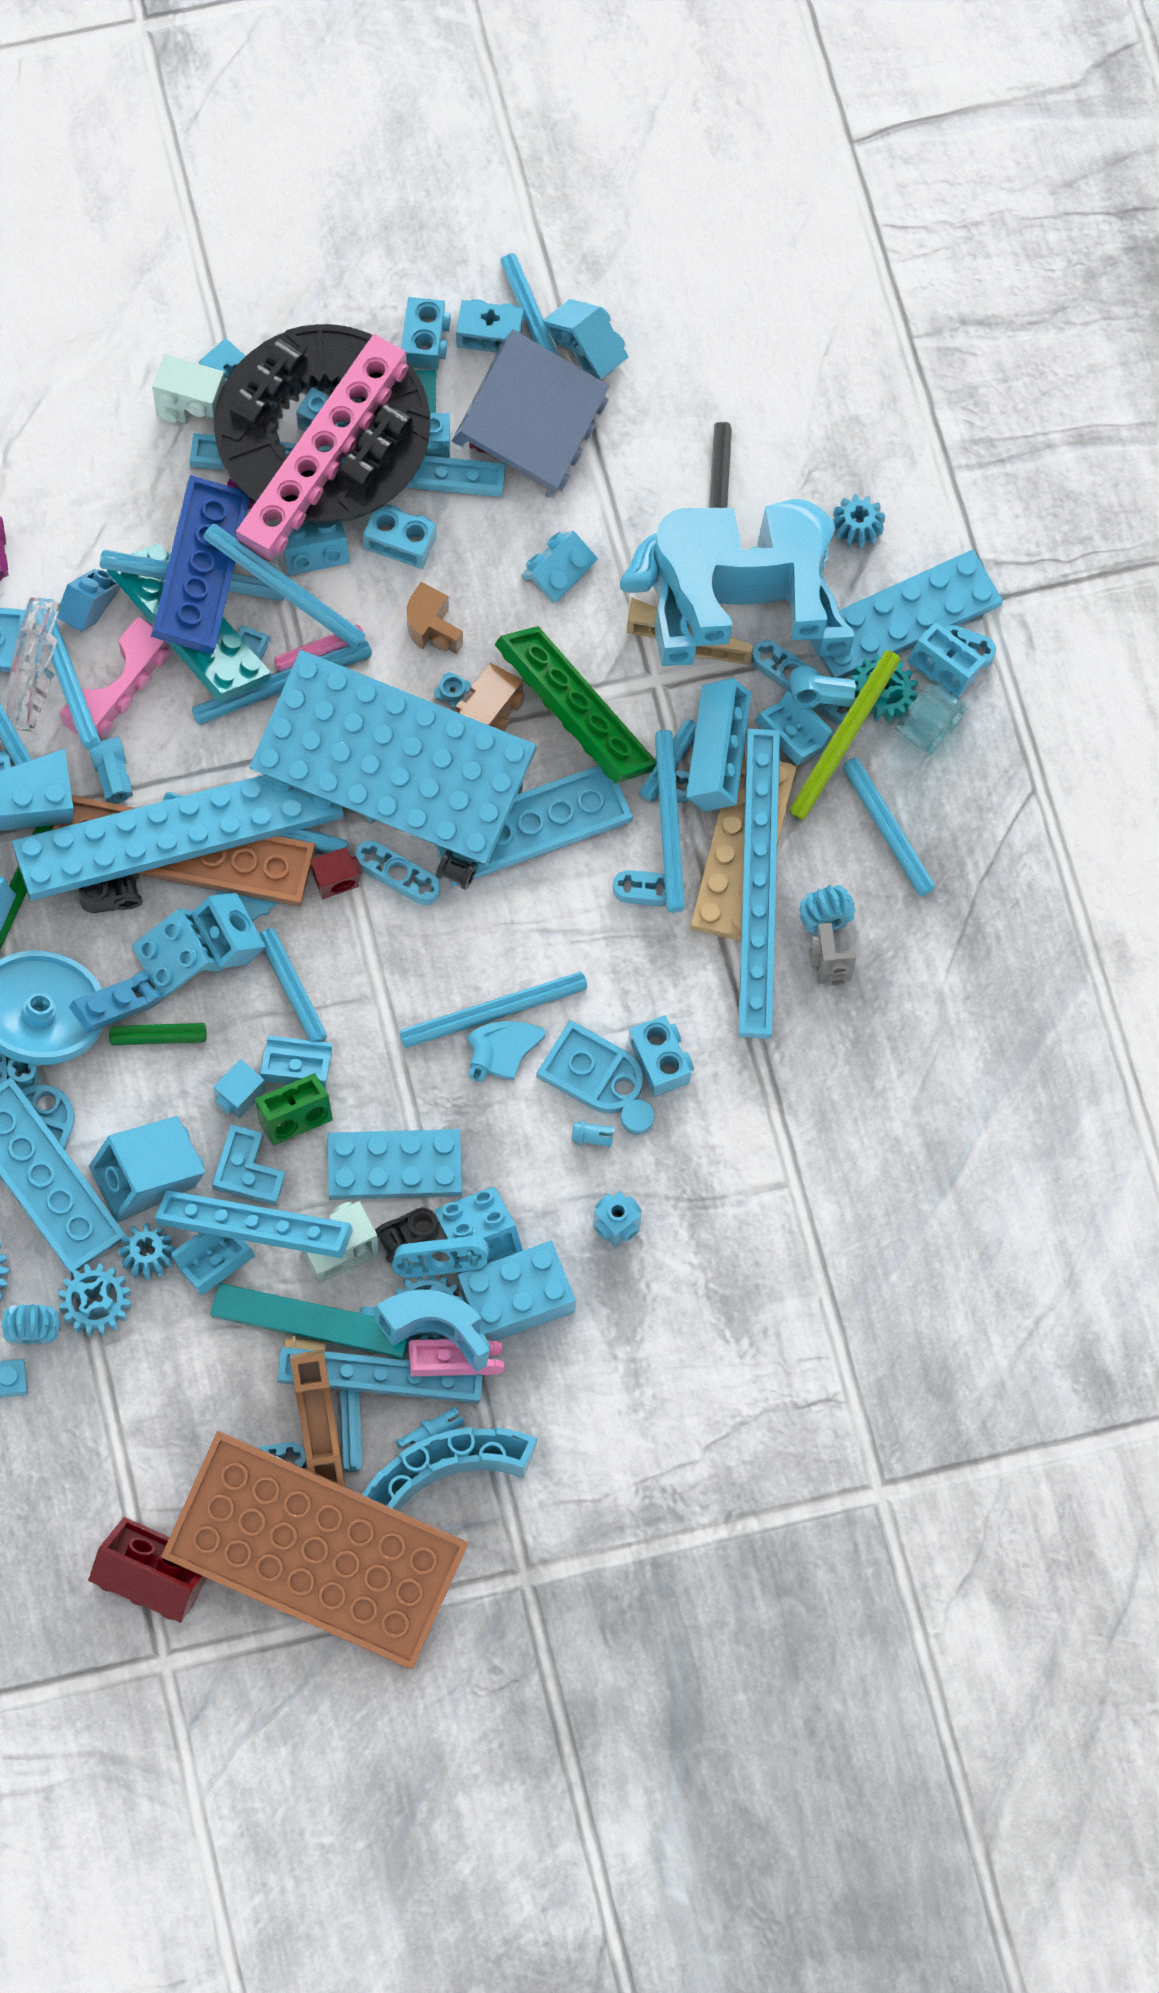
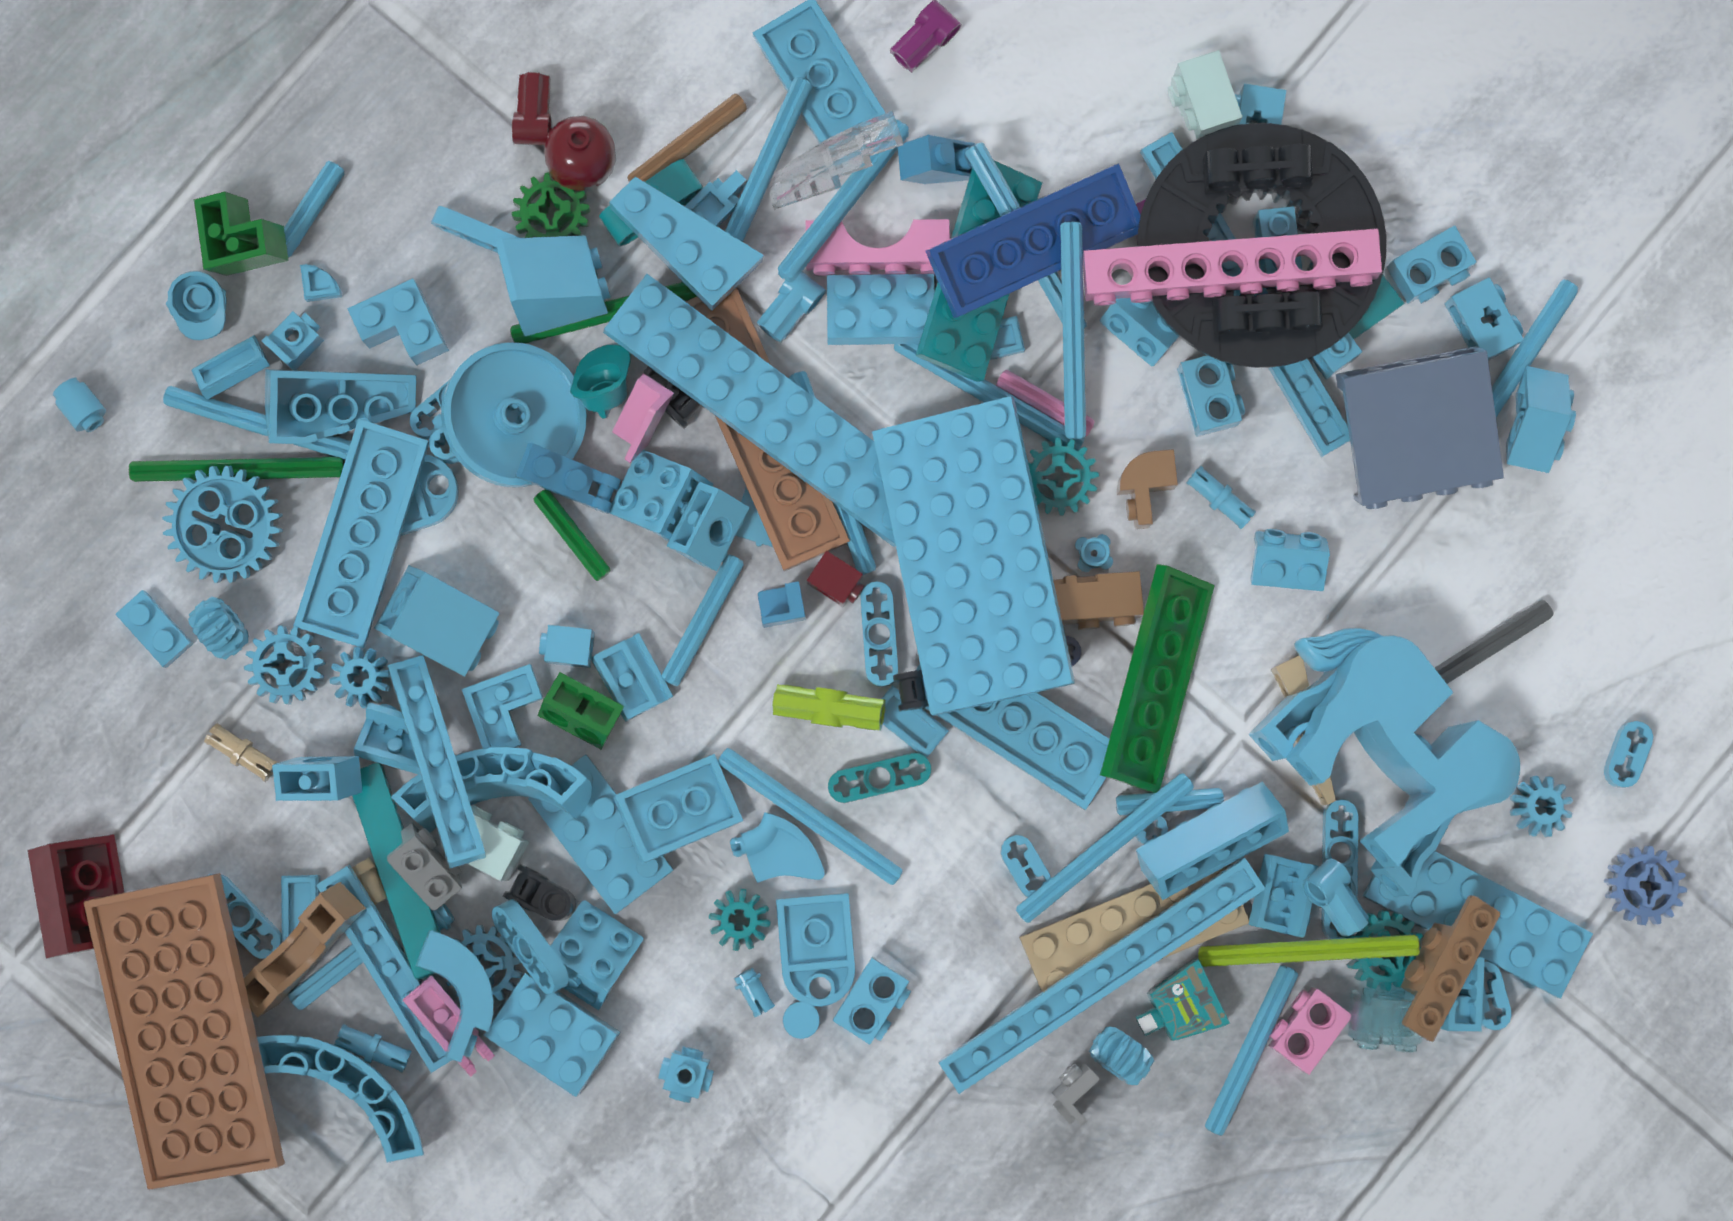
camera: 55 degrees right, 15 degrees up
(61, 930) = (602, 379): none -> teal piece
(110, 918) = (642, 414): none -> bright pink panel
(134, 1378) = (240, 752): none -> tan pin
(162, 710) = (878, 308): none -> medium azure plate
(199, 1326) = (317, 778): none -> medium azure brick
(280, 1415) = (296, 896): none -> medium azure tile
(301, 1191) = (504, 773): none -> medium azure brick
(325, 922) = (781, 605): none -> dark azure panel
(328, 1292) = (425, 867): none -> light grey bracket
(391, 654) = (1059, 459): none -> teal gear
(418, 1091) = (677, 808): none -> medium azure plate
(424, 938) = (829, 707): none -> lime piece
(478, 579) = (1220, 497): none -> medium azure pin
(481, 897) = (912, 726): none -> medium azure tile
(502, 920) = (903, 762): none -> teal beam
(532, 1117) = (730, 927): none -> teal gear
(822, 846) = (1183, 1005): none -> teal torso
(860, 447) = (1637, 756): none -> medium azure beam
(909, 775) = (1317, 1036): none -> bright pink brick
(921, 649) = (1444, 966): none -> medium nougat bracket
(965, 497) = (1644, 899): none -> medium blue gear

